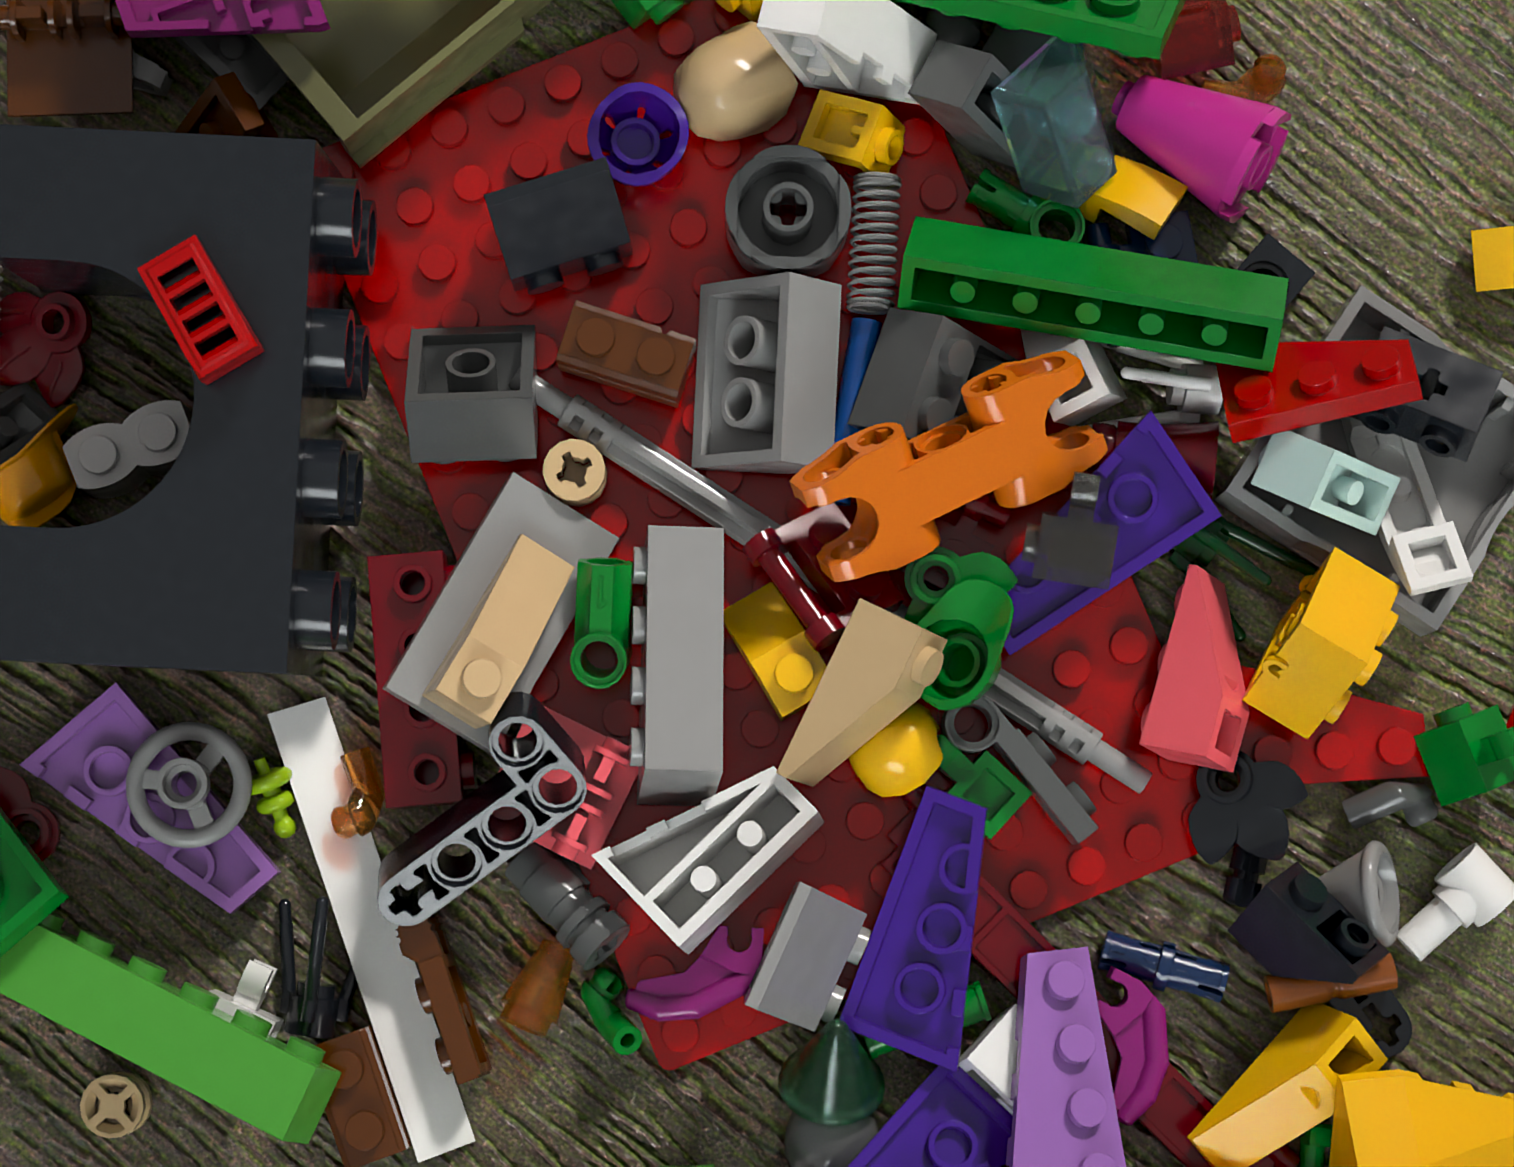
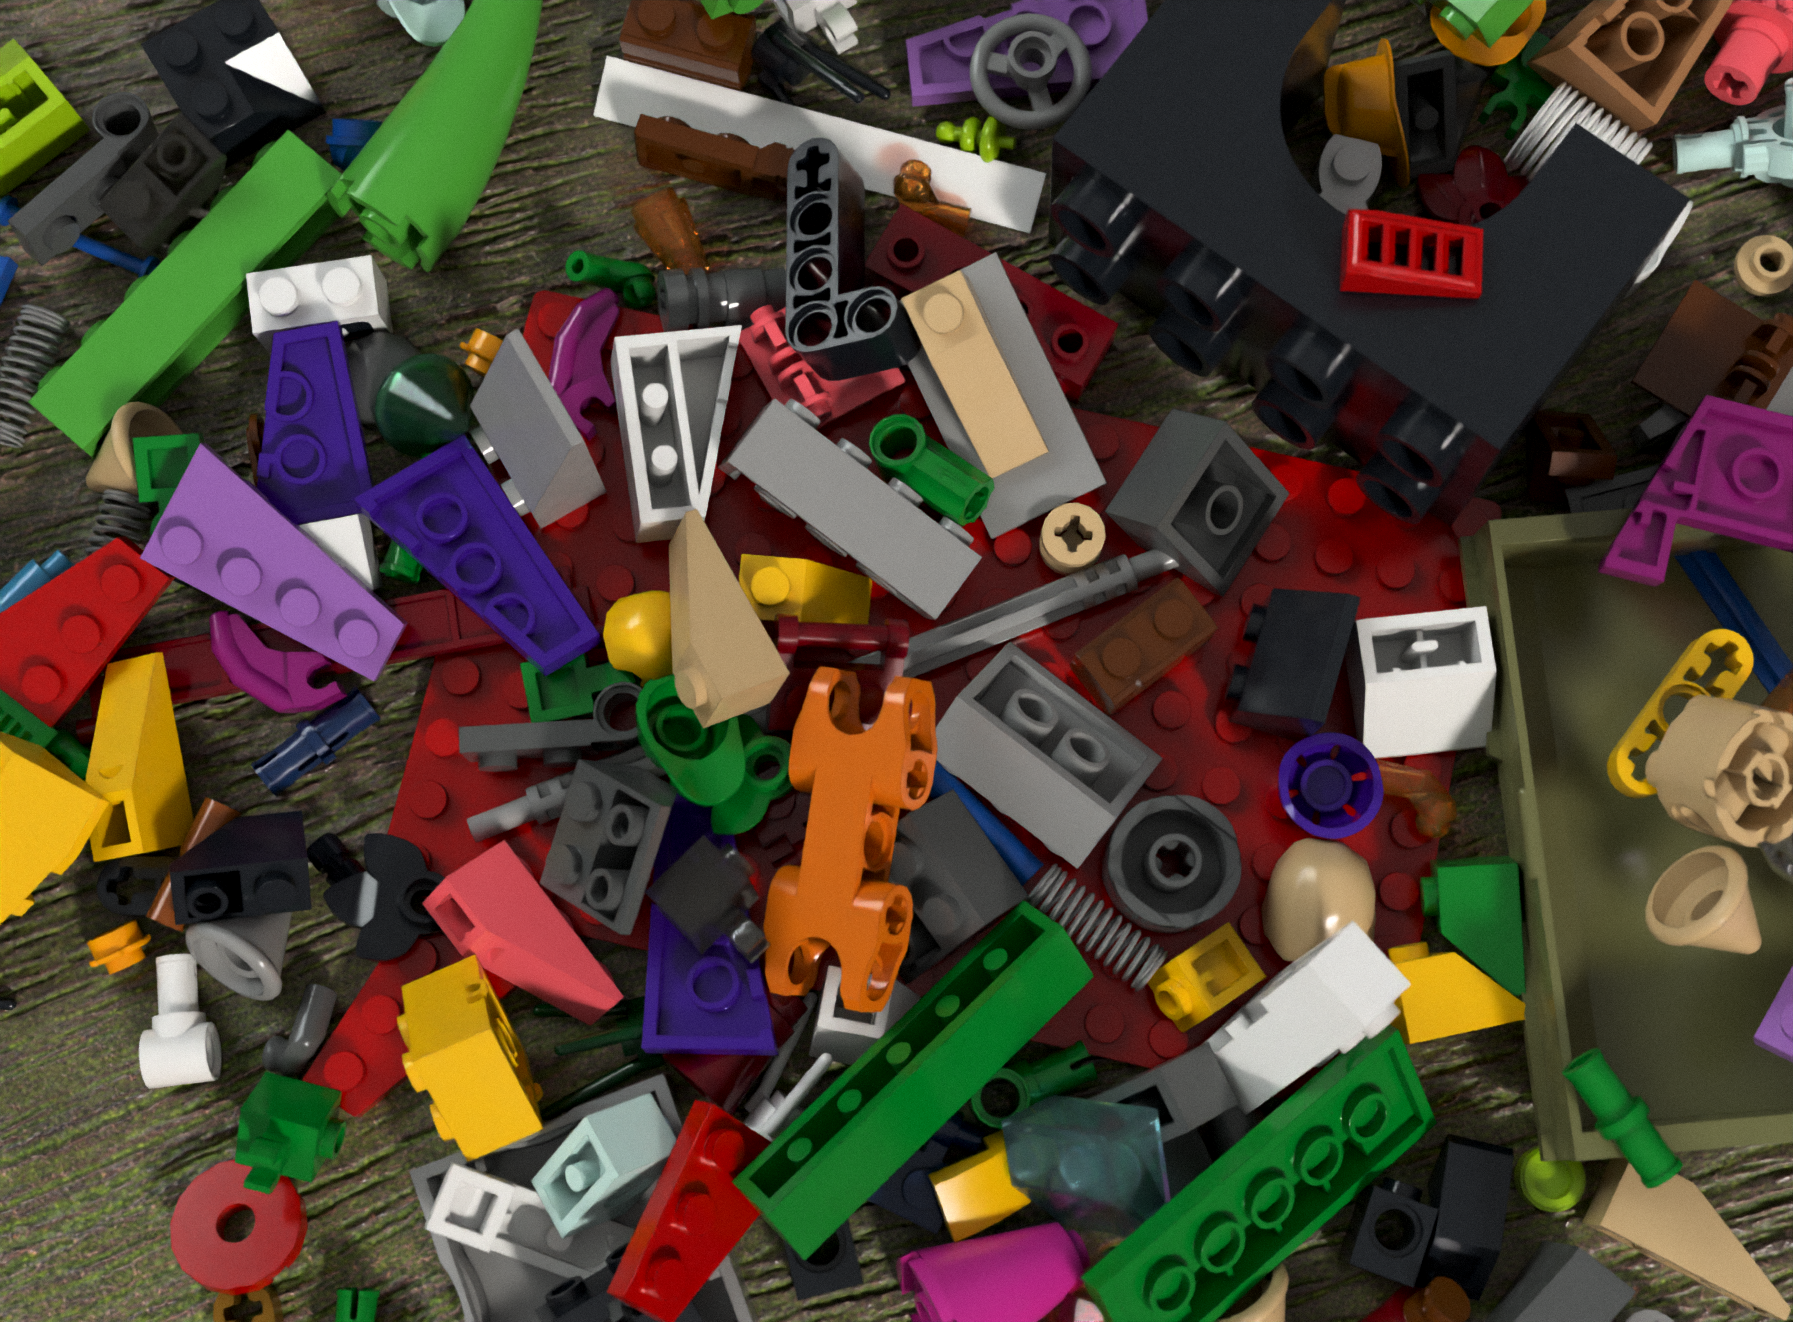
camera: 130 degrees right, 5 degrees down
(502, 117) = (1422, 681): none -> white slope
(586, 63) = (1425, 793): none -> clear orange arm
(749, 1065) = (481, 350): none -> light orange plate
(1084, 650) = (608, 840): none -> dark grey slope
(1432, 999) = (118, 947): none -> light orange plate

